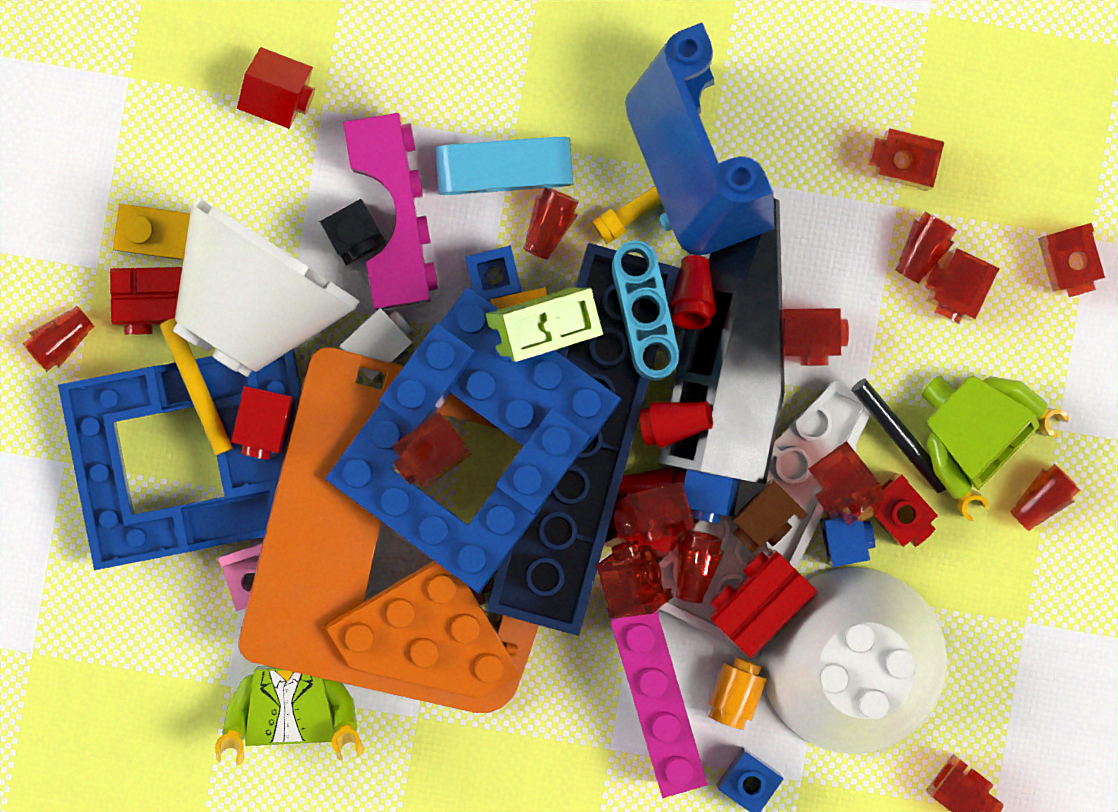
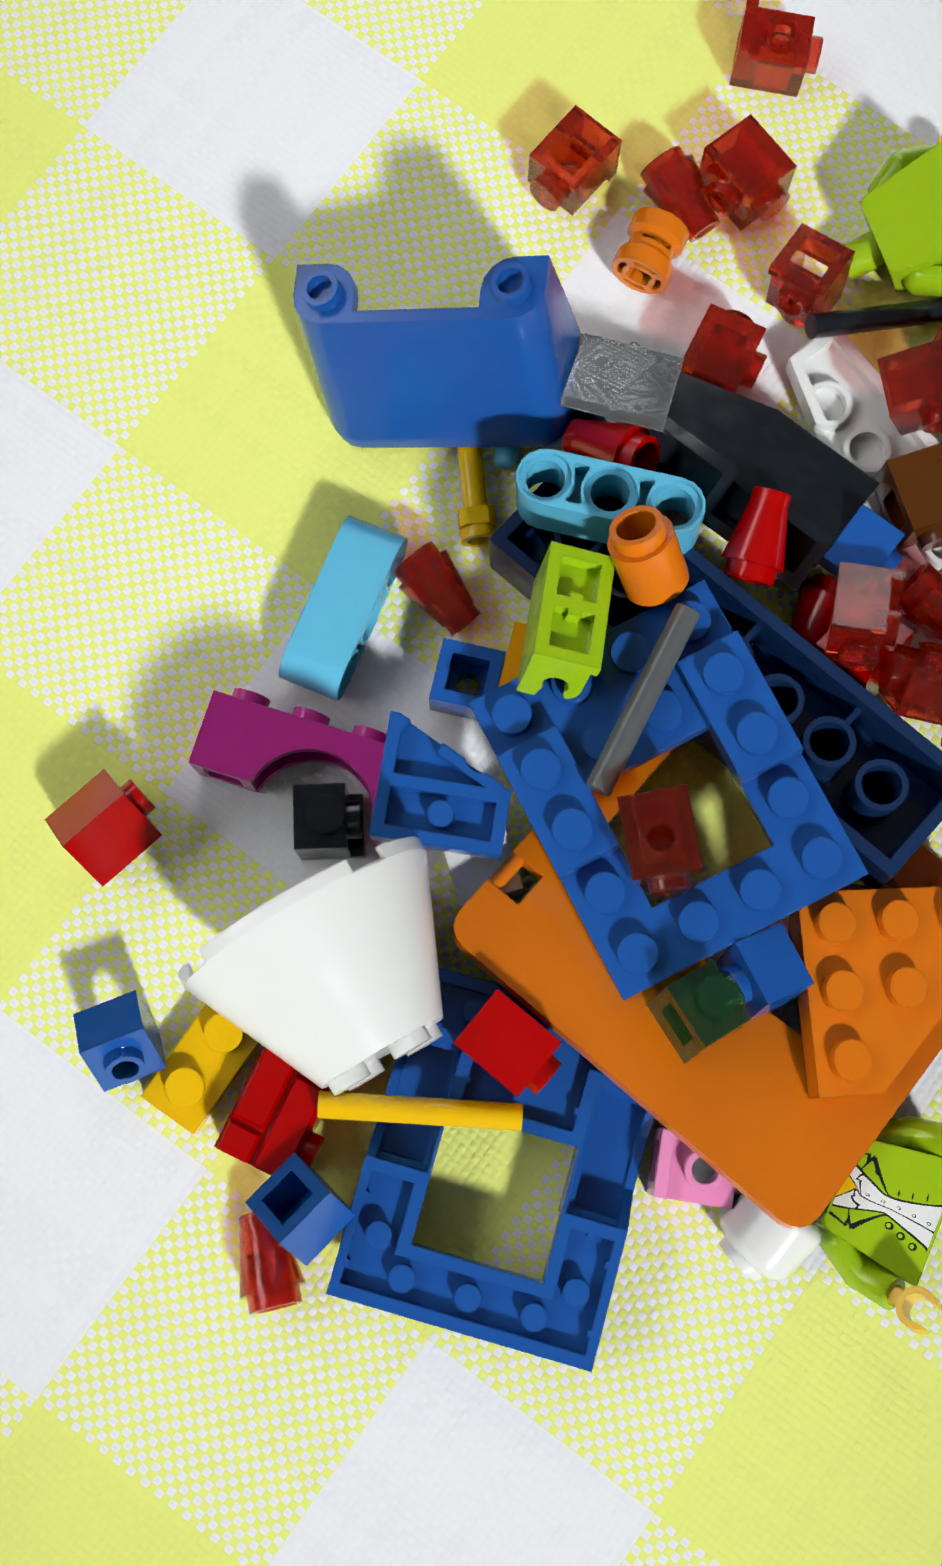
camera: 70 degrees left, 10 degrees down
(99, 342) = (300, 1209): none -> blue plate
(145, 172) = (119, 1041): none -> blue plate
(220, 642) = (762, 1245): none -> white head
(342, 529) = (708, 1005): none -> clear green brick
(387, 557) = (766, 970): none -> blue plate
(398, 295) = (436, 796): none -> blue wing
(516, 397) = (642, 699): none -> dark grey bar
(610, 355) = (647, 556): none -> orange brick
(743, 277) = (622, 382): none -> clear piece
(859, 244) = (647, 257): none -> orange wheel
(896, 366) = (799, 291): none -> clear red brick

